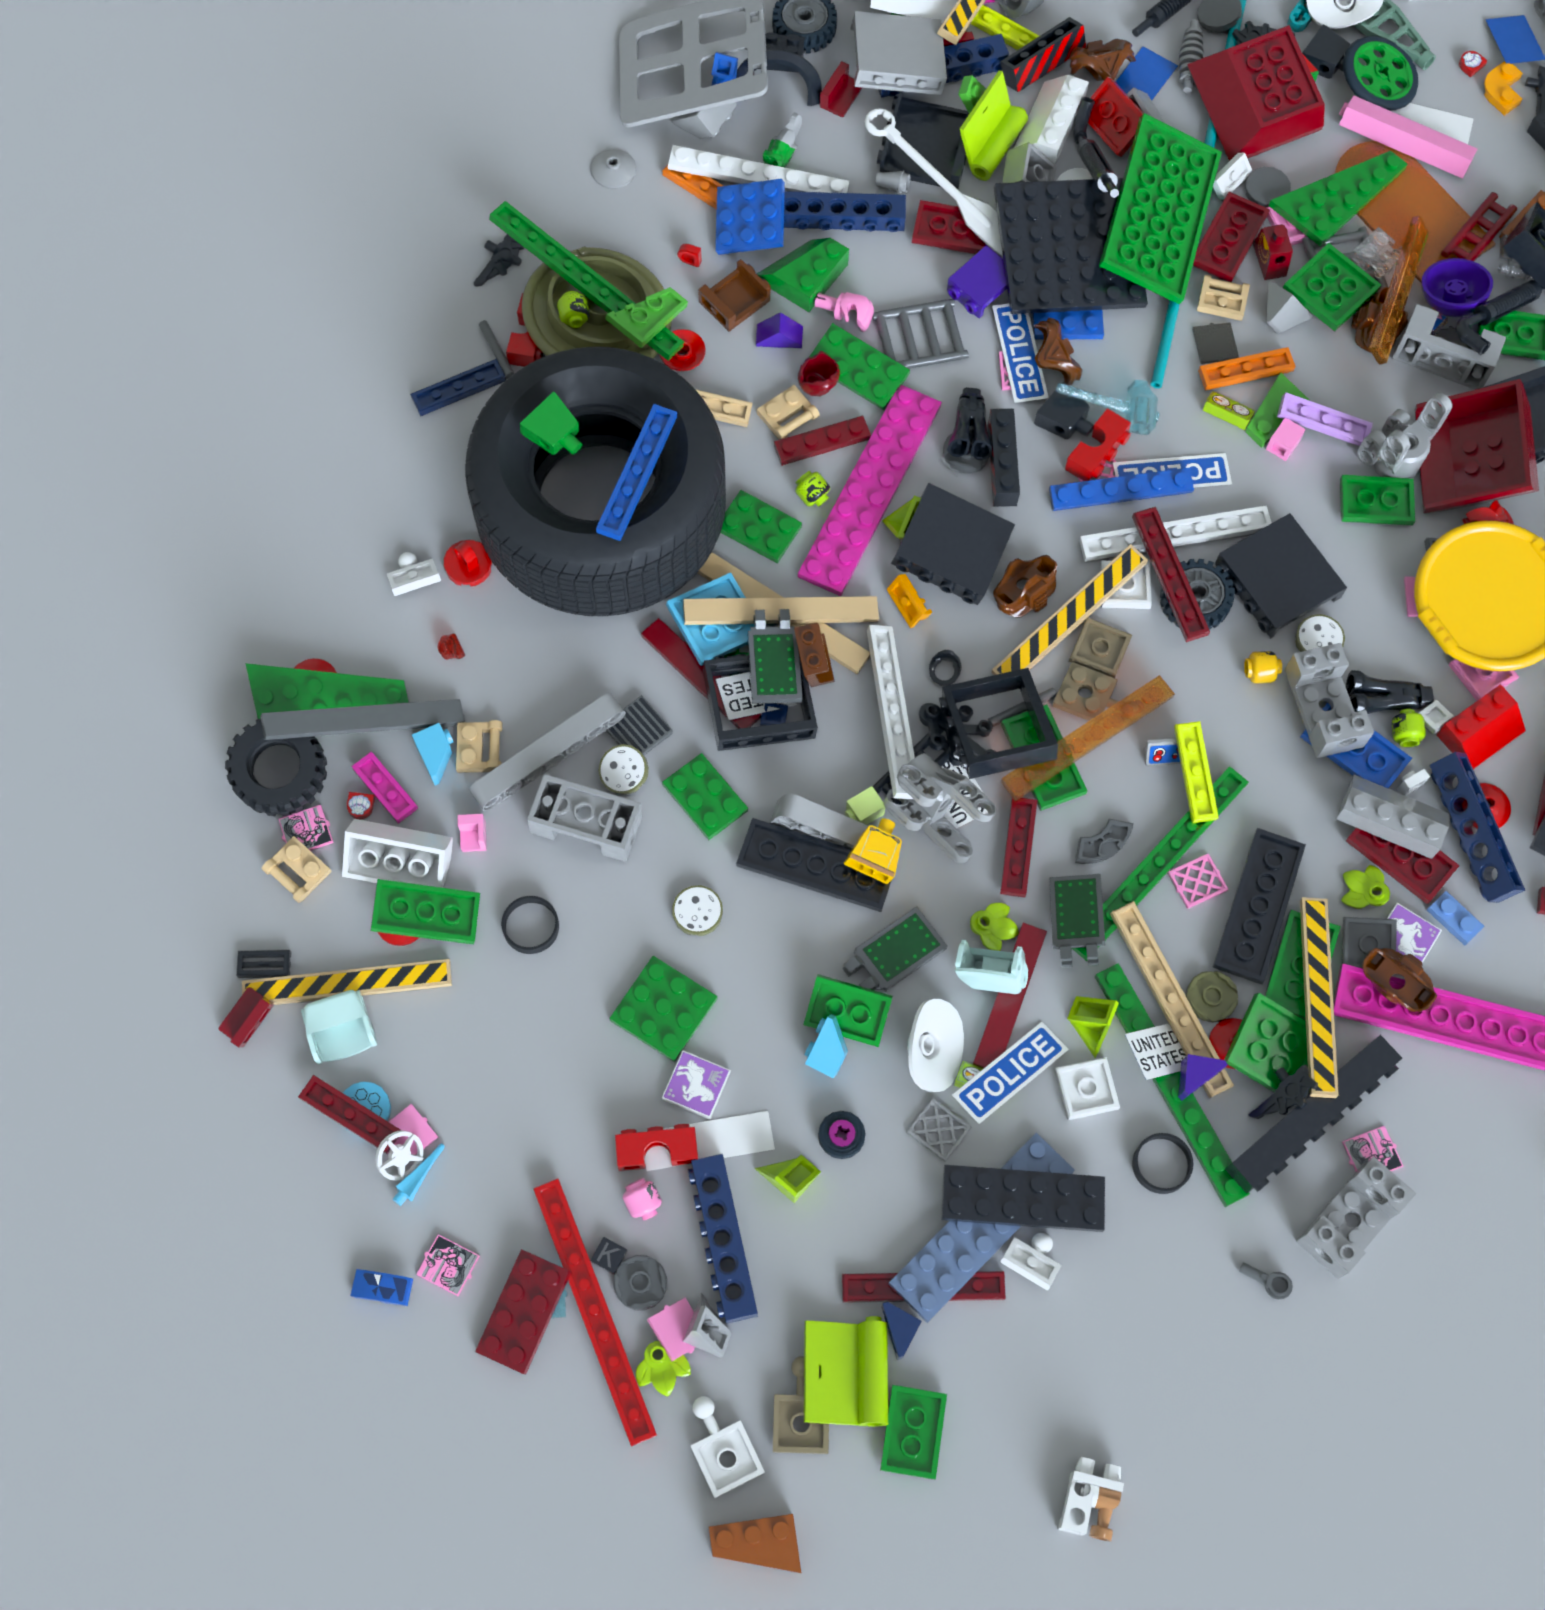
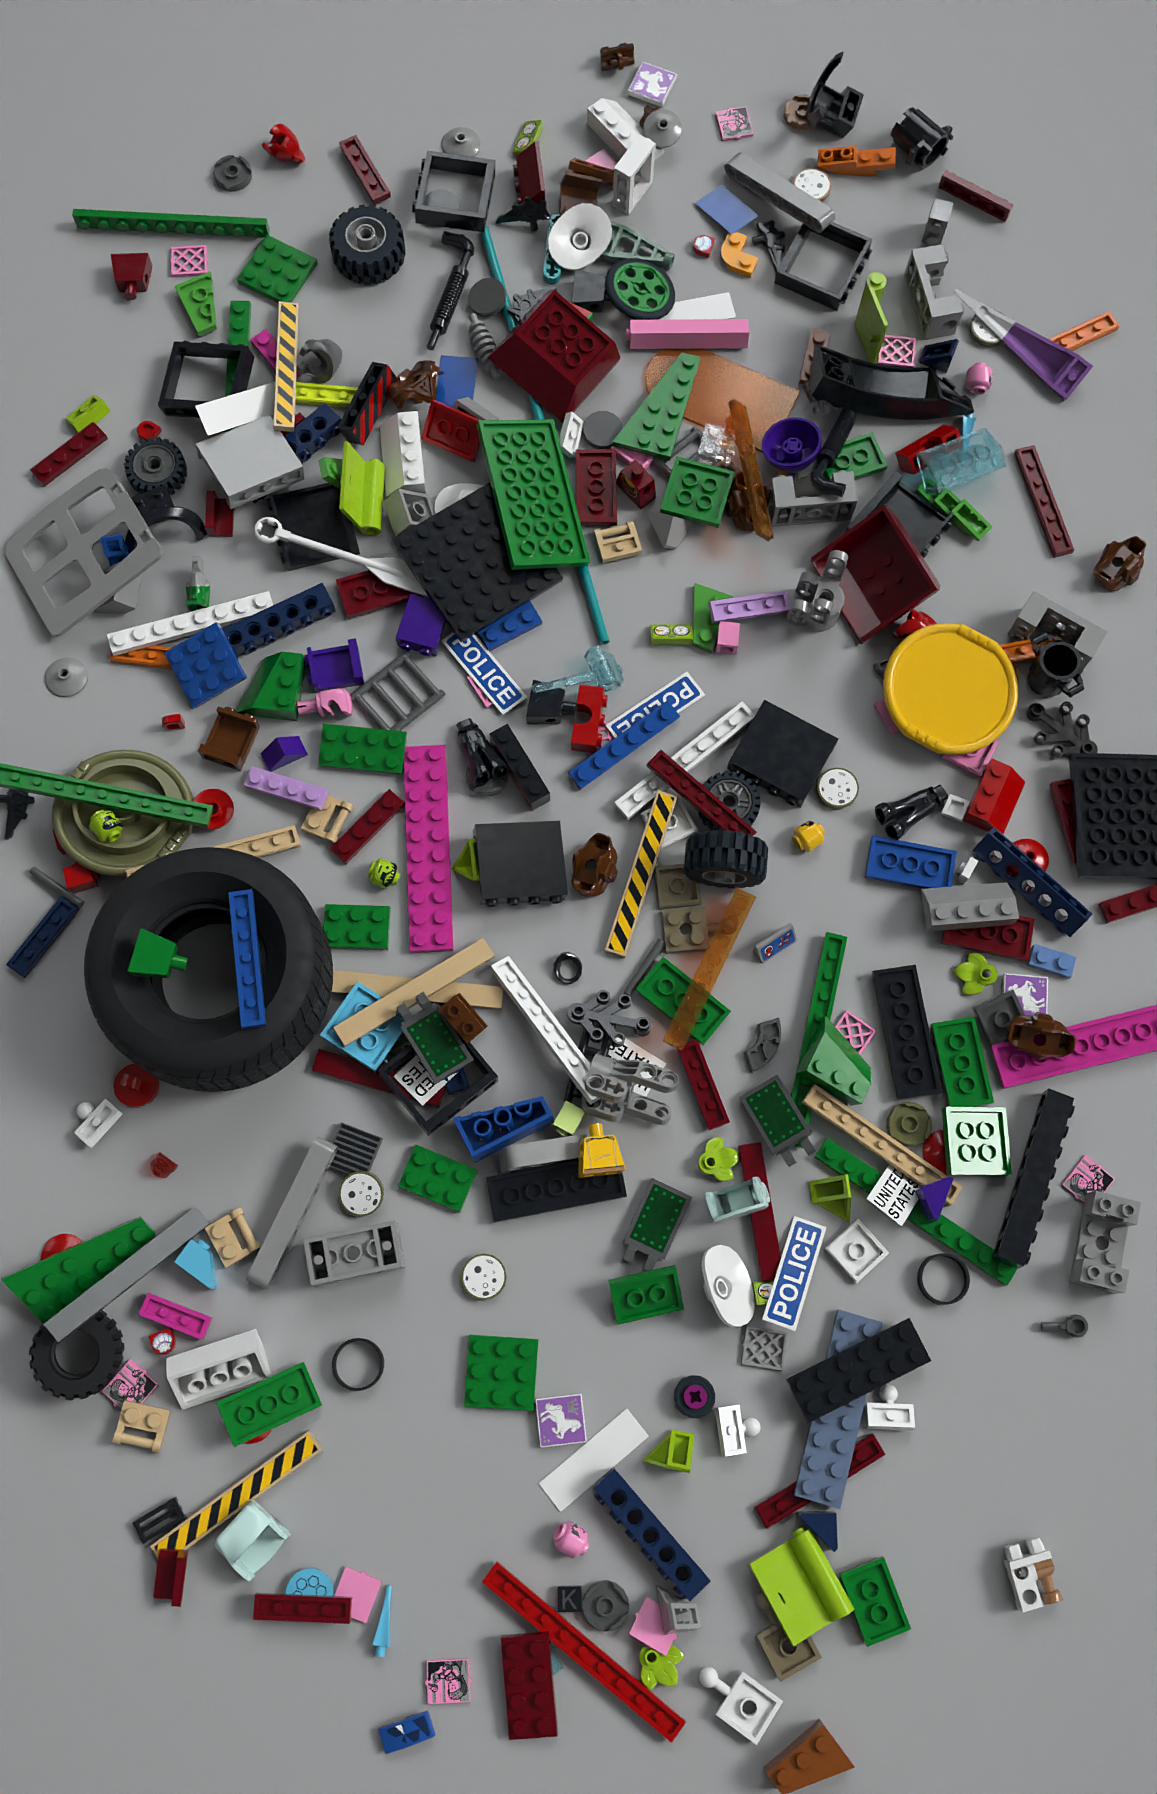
camera: 30 degrees left, 5 degrees up
(399, 1155) = (361, 1618): white wheel -> none
(472, 832) = (269, 1314): bright pink panel -> none
(634, 1145) = (540, 1501): red arch -> none
(648, 317) = (172, 803): bright green wing -> none
(763, 366) = (286, 788): none -> lavender plate
(779, 773) = (502, 1126): none -> blue wedge
(818, 374) = (335, 773): dark red hair -> none
(829, 1049) = (649, 1335): medium azure slope -> none
(861, 1187) = (732, 1430): none -> white plate
(874, 279) = (334, 667): none -> dark purple panel
(894, 181) = (305, 573): light grey cone -> none
(908, 601) = (509, 928): light orange plate -> none
(1008, 759) = (657, 1028): black window -> none
(1056, 352) = (514, 658): reddish brown piece -> none
(1091, 153) = (454, 474): black piece -> none
(1163, 638) = (726, 859): none -> black wheel
(1166, 896) = (835, 1065): none -> green wedge
(1196, 772) = (805, 952): neon yellow tile -> none
(1215, 342) = (631, 582): clear smoke piece -> none
(1246, 368) = (667, 593): orange plate -> none
(1289, 1093) = (1009, 1173): black piece -> none
(1316, 678) = (857, 825): light grey plate -> none
(1318, 997) = (990, 1085): tile -> none
(1377, 500) = (822, 652): green plate -> none
(1408, 728) = (941, 827): lime head -> none
(1477, 218) = (791, 379): dark red bar -> none

